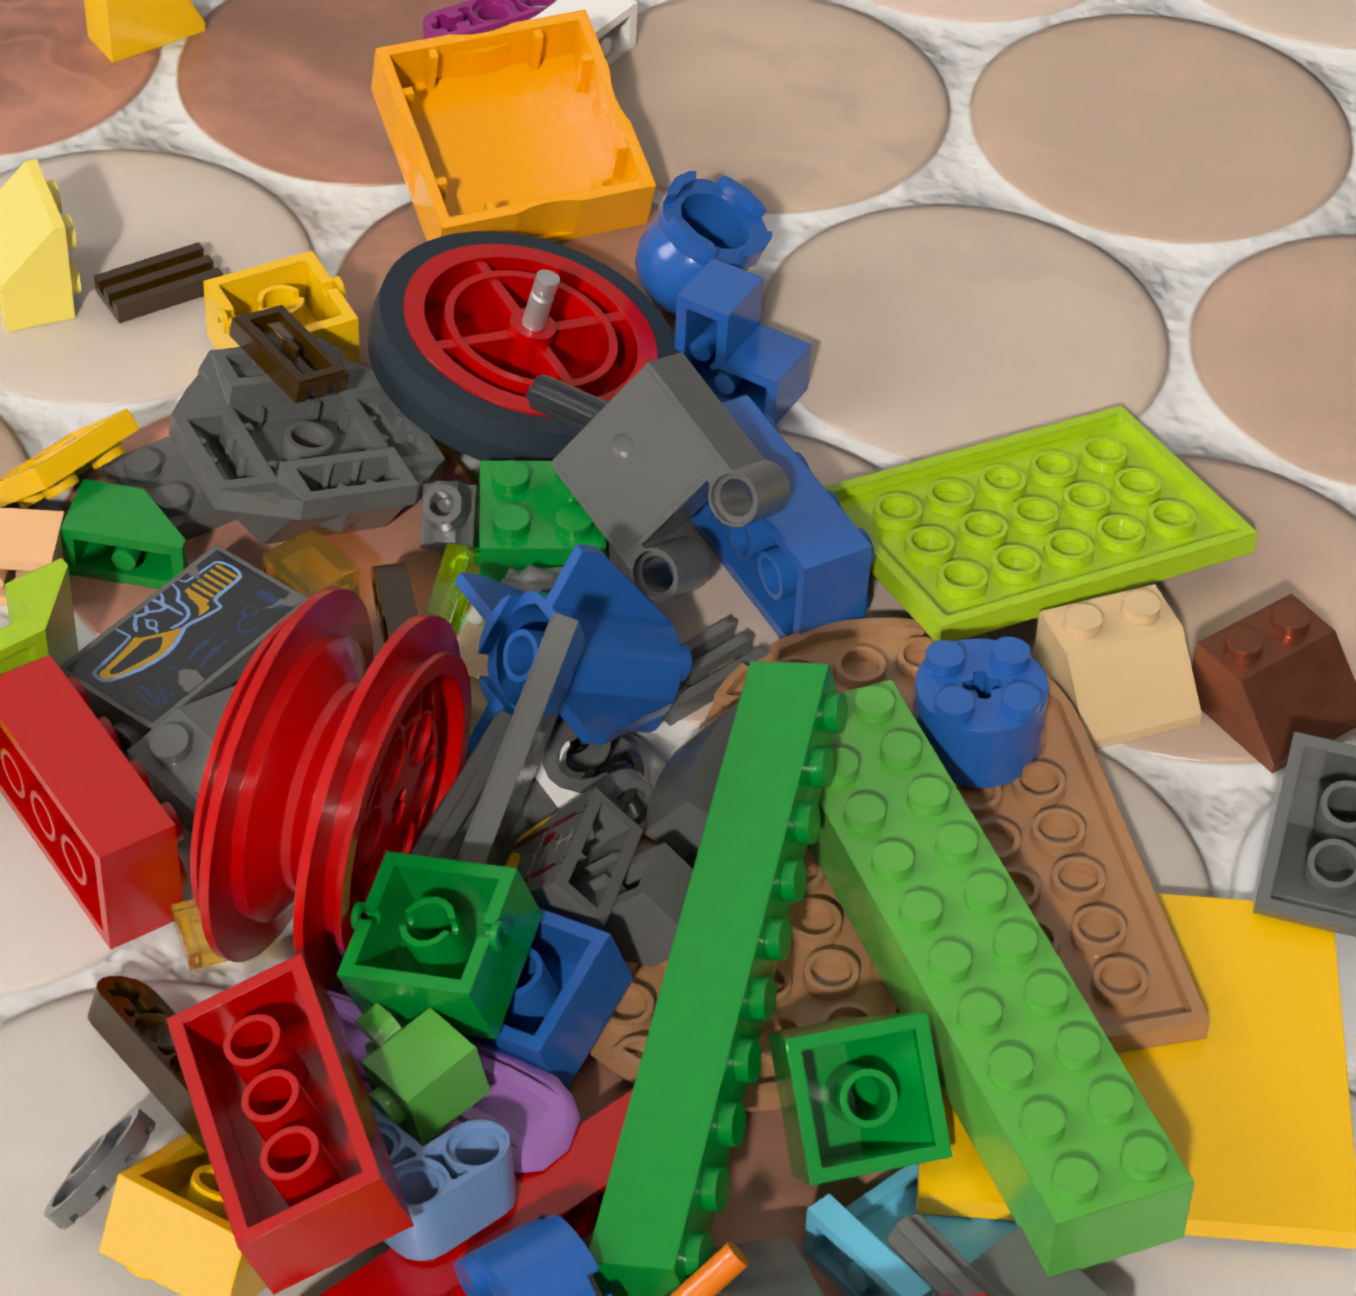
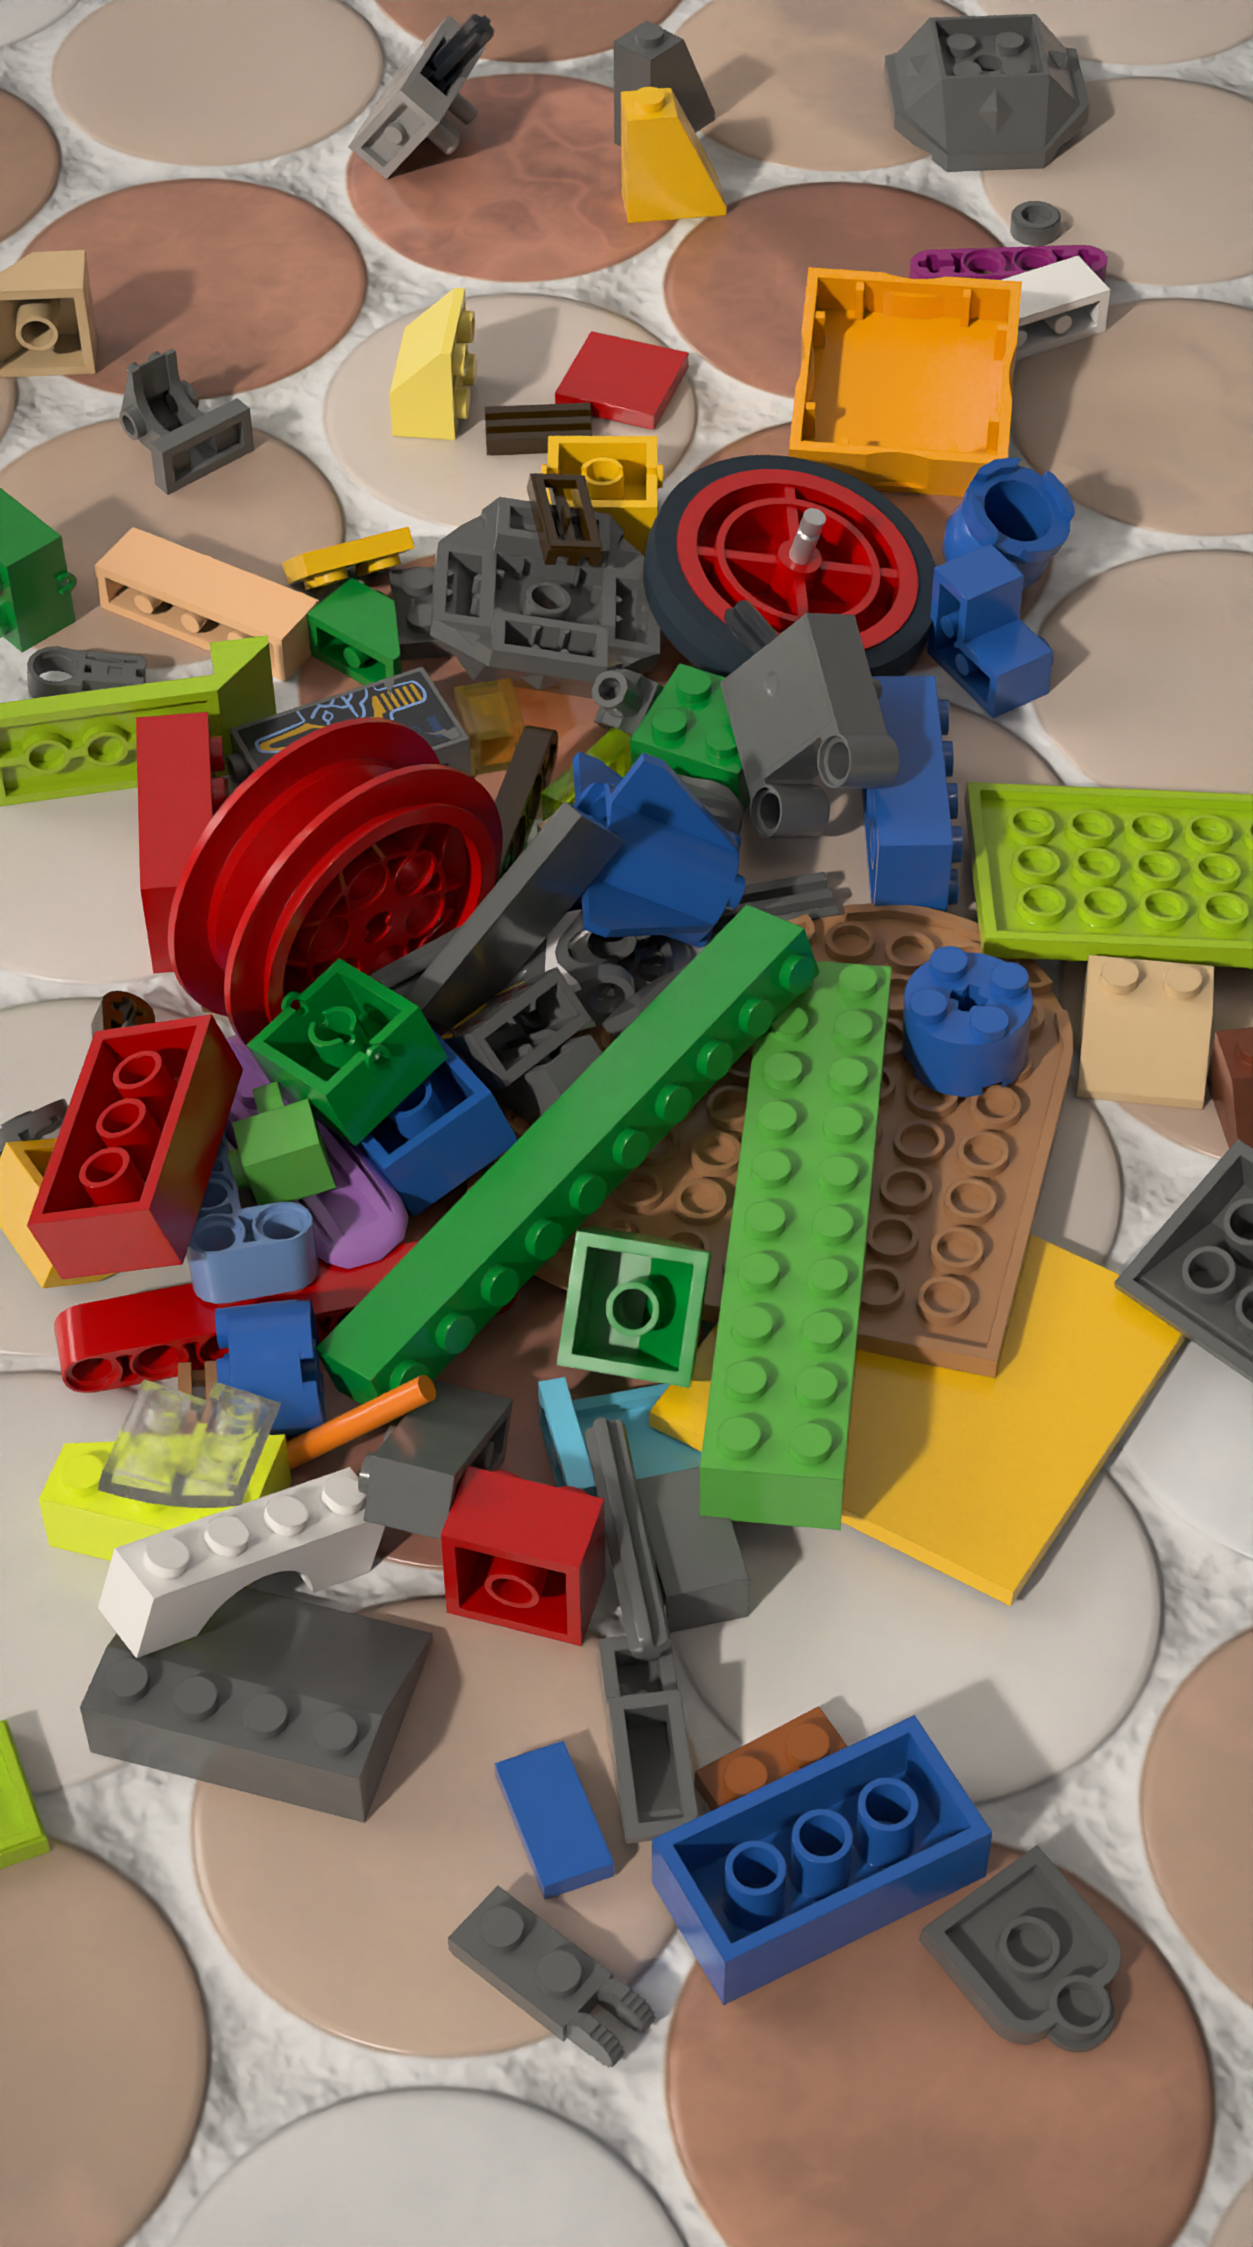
camera: 30 degrees right, 5 degrees up
(216, 208) = (623, 379): none -> red tile

